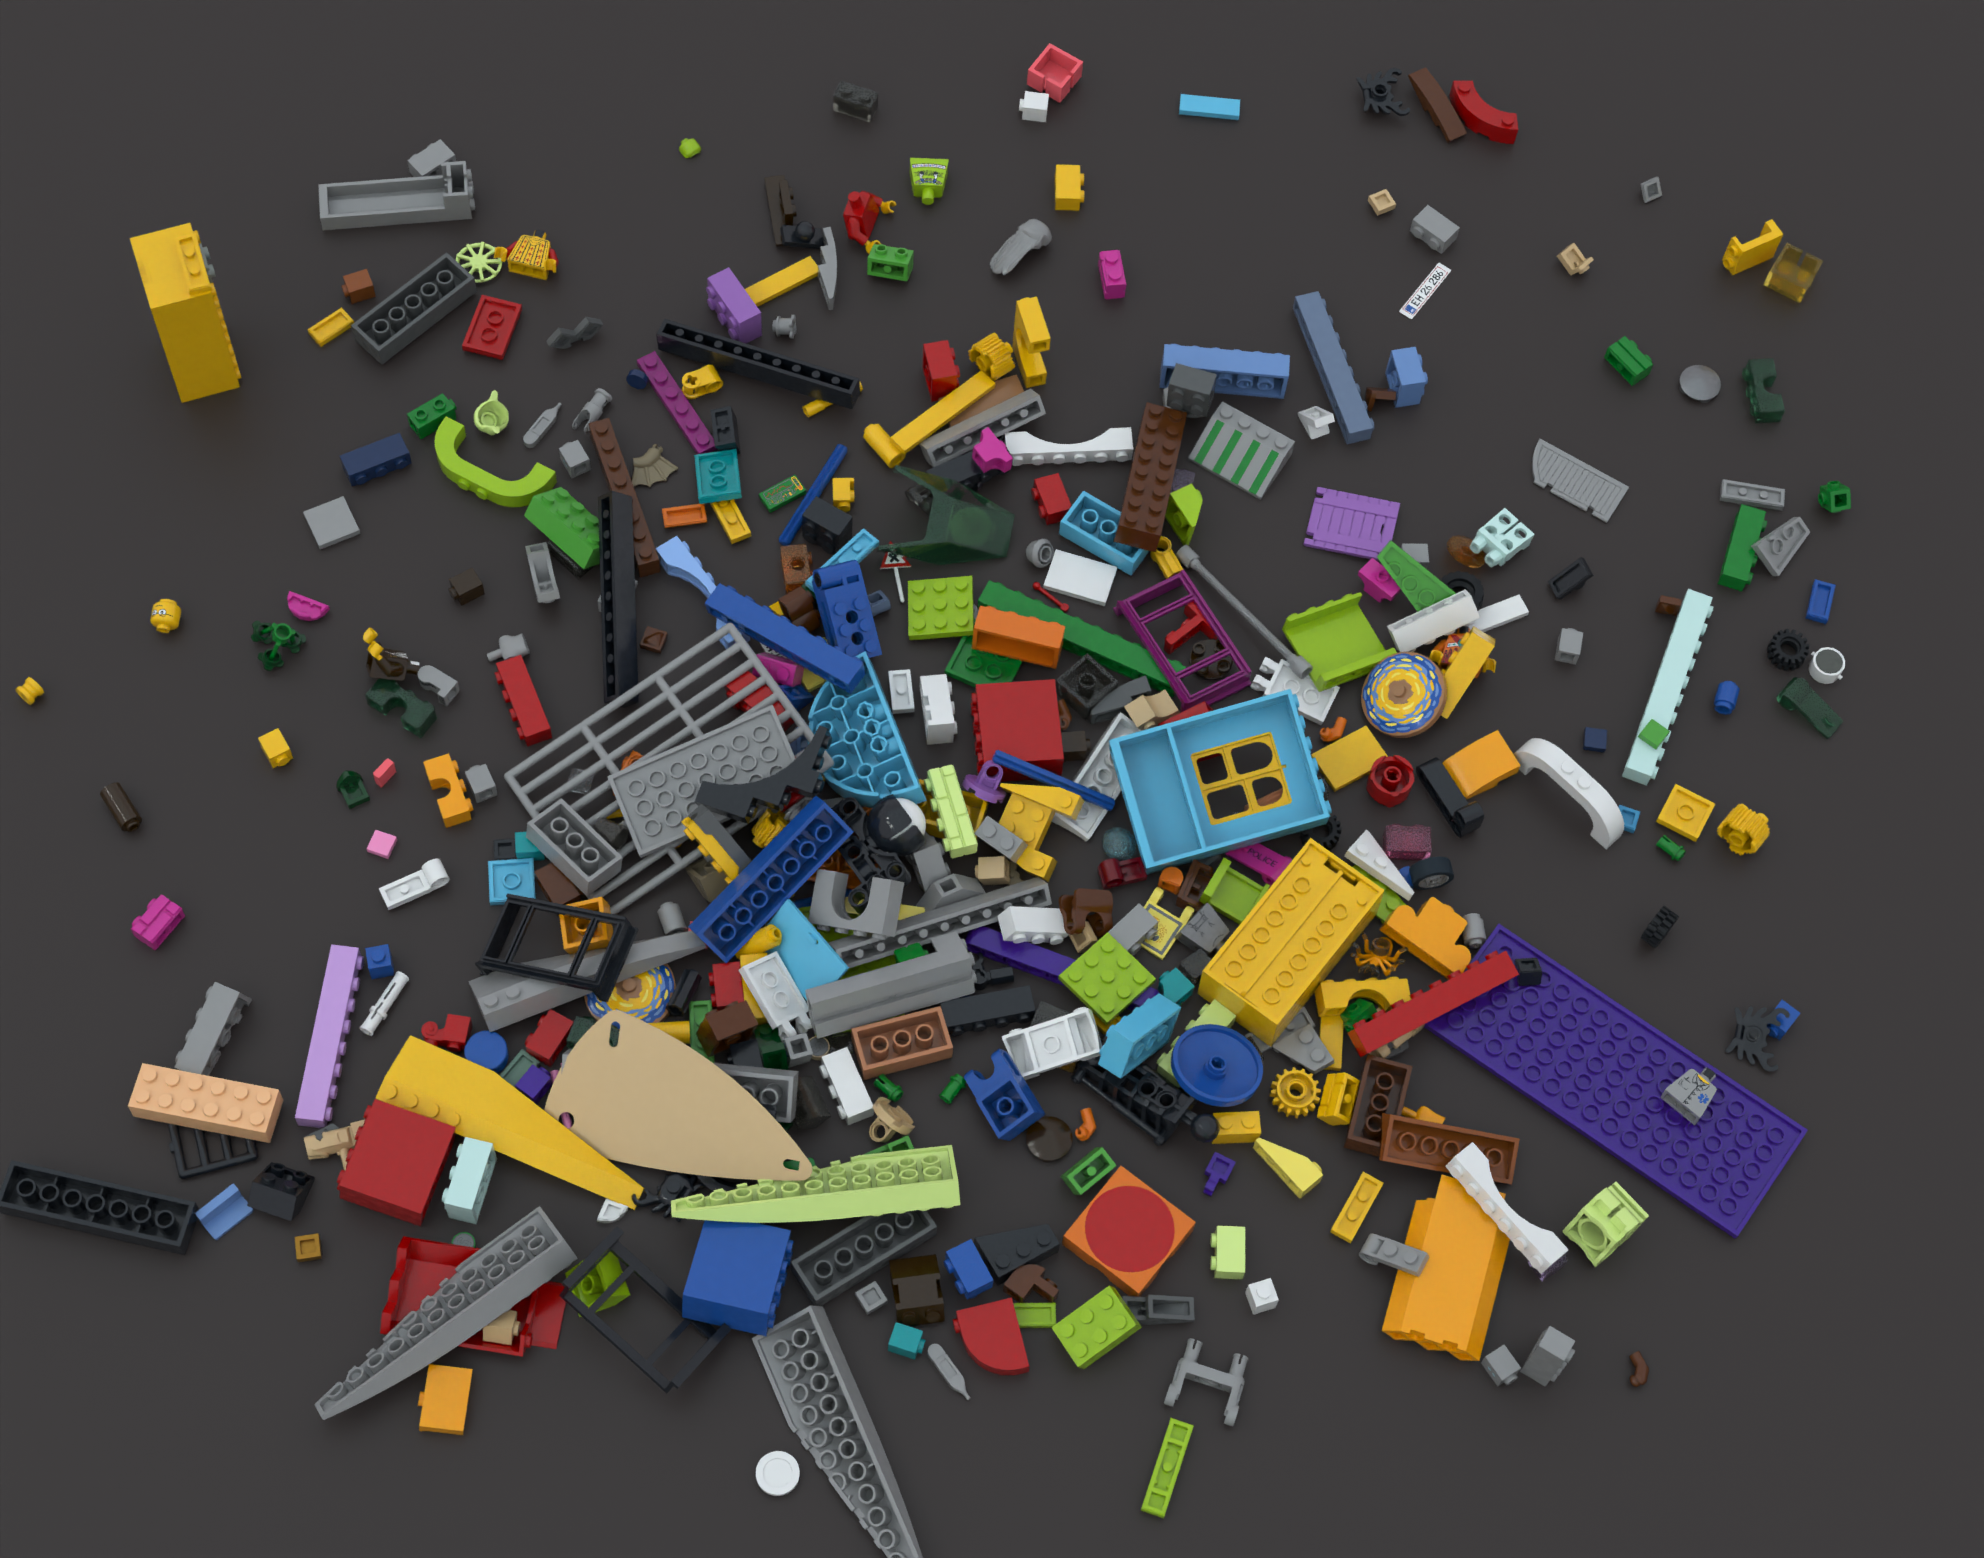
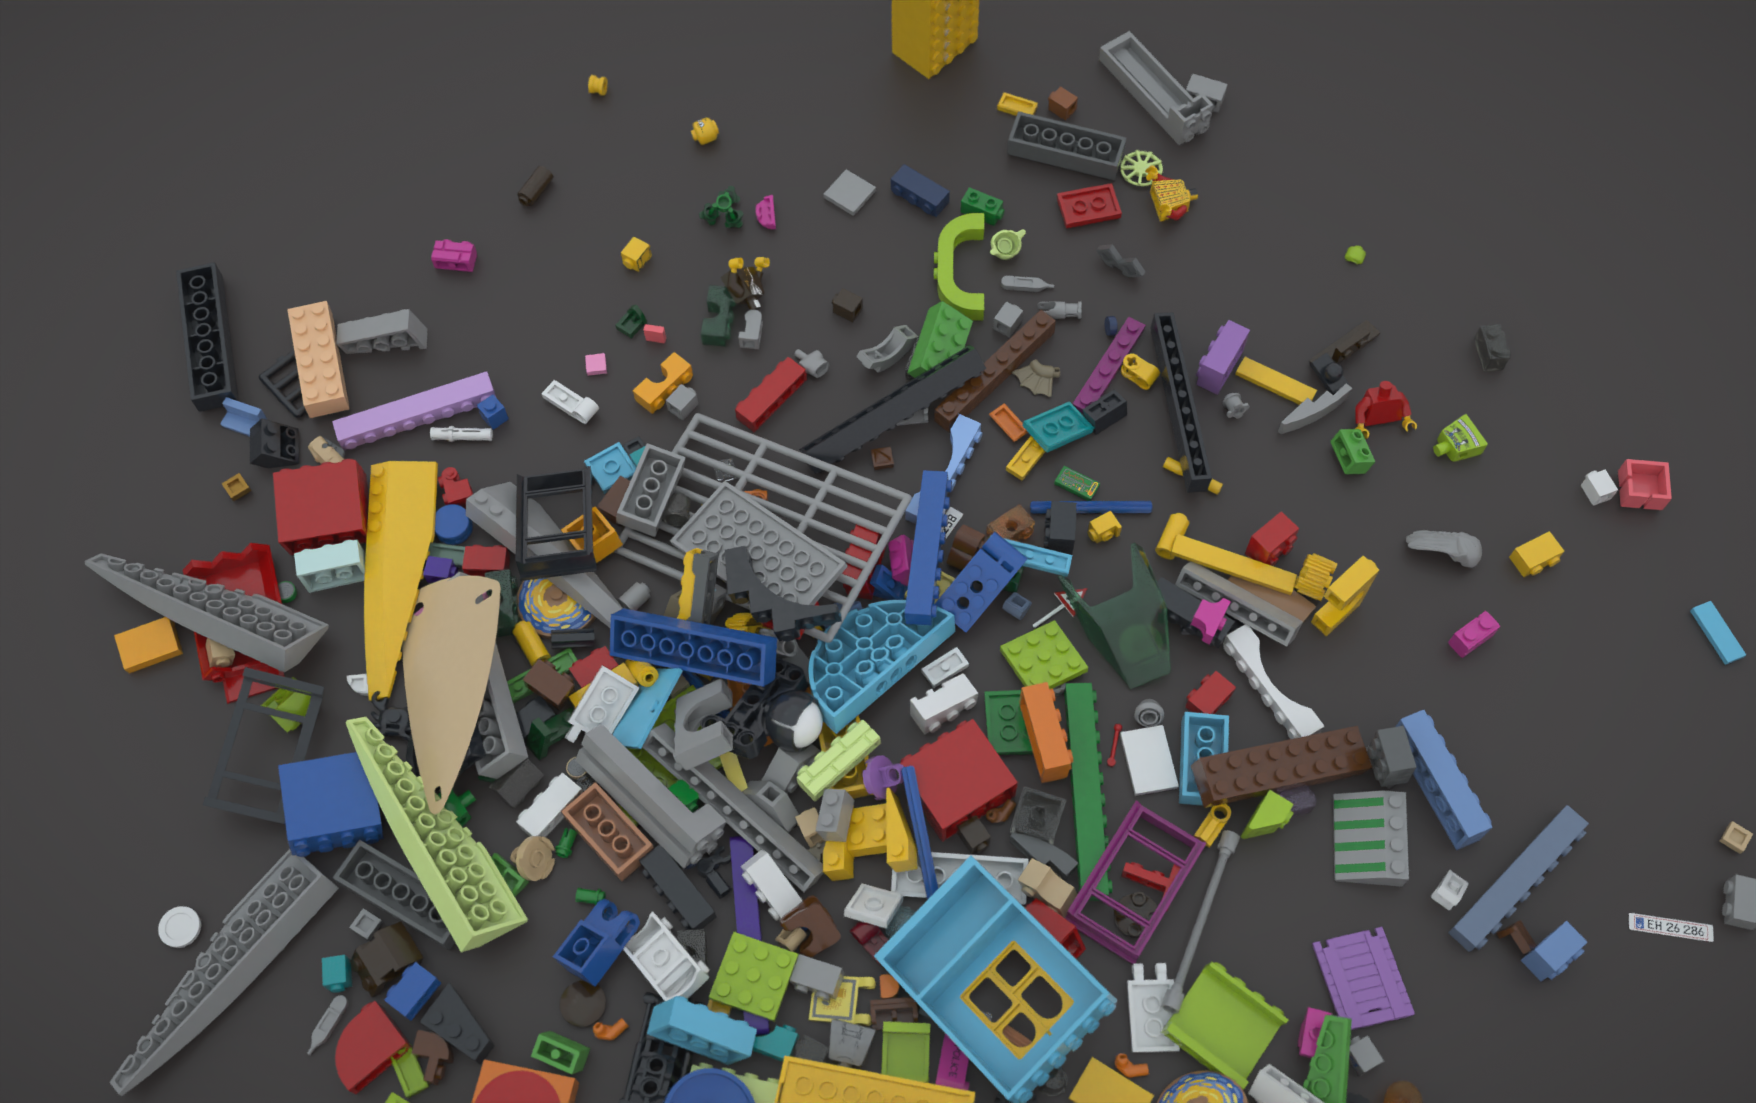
camera: 70 degrees right, 0 degrees up
(797, 1049) = (560, 750): light grey brick -> none
(1094, 854) = (873, 905): none -> white tile

